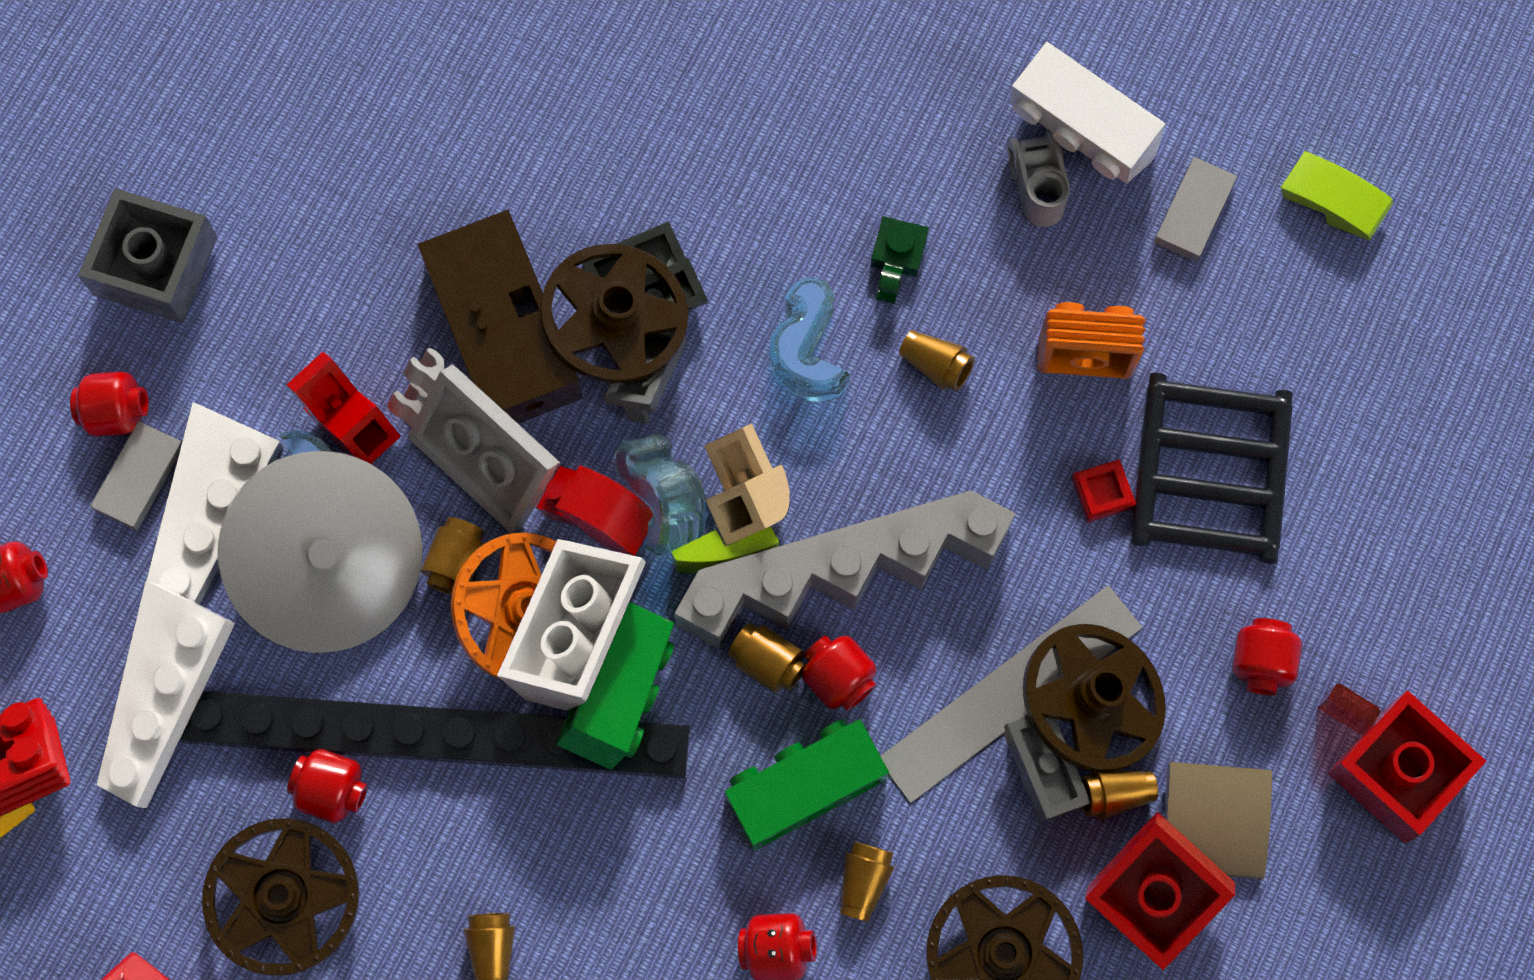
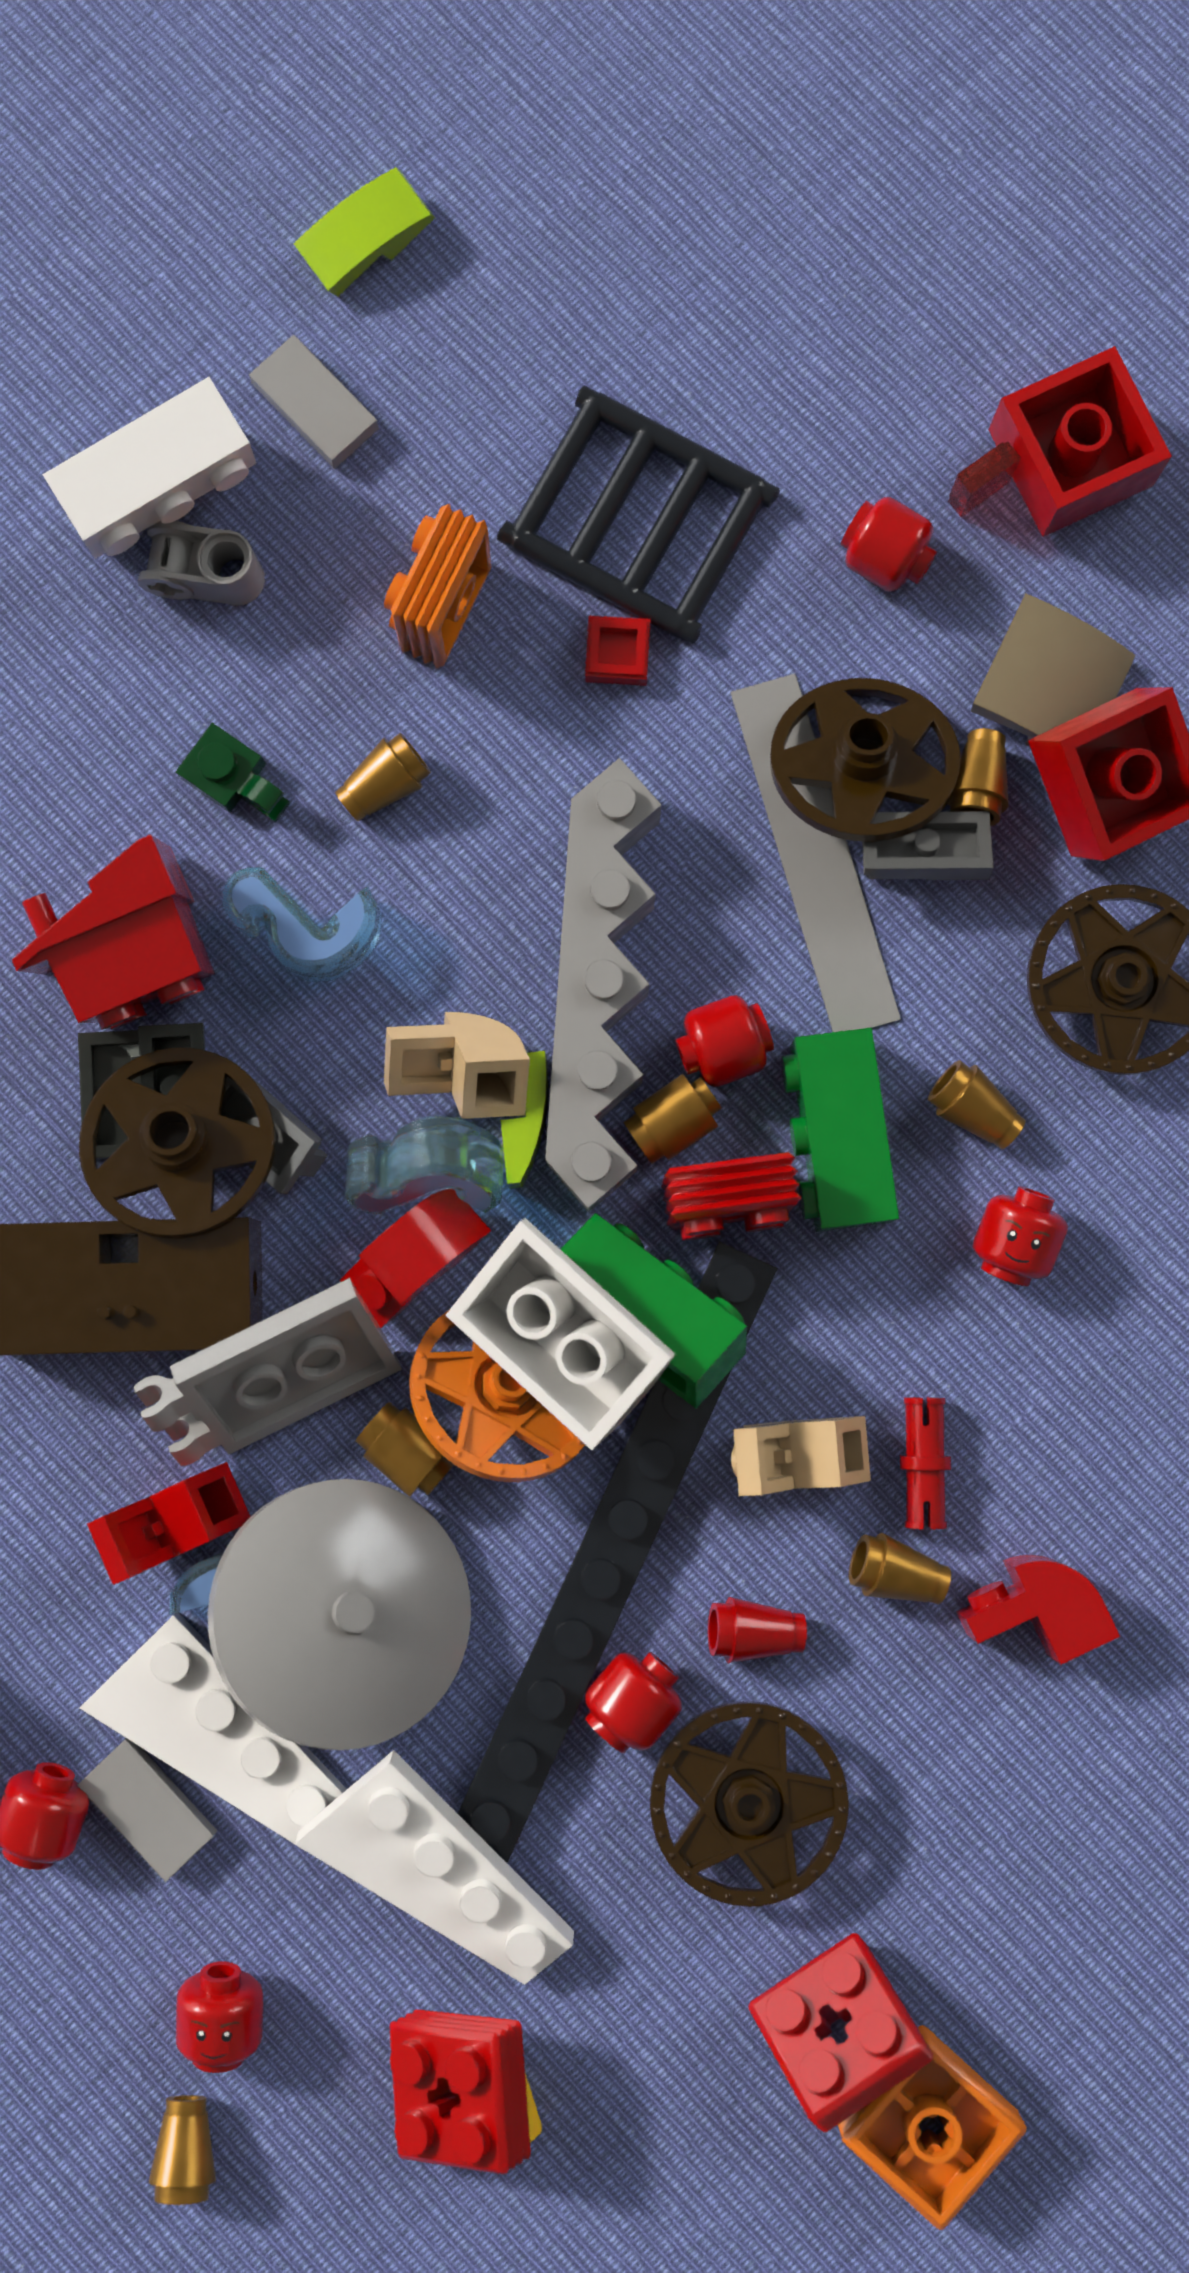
camera: 65 degrees left, 10 degrees up
(409, 857) = (754, 1631): none -> red cone
(550, 838) = (800, 1455): none -> tan brick
(579, 940) = (925, 1463): none -> red pin
(731, 724) = (730, 1191): none -> red brick
(745, 224) = (122, 940): none -> red piece

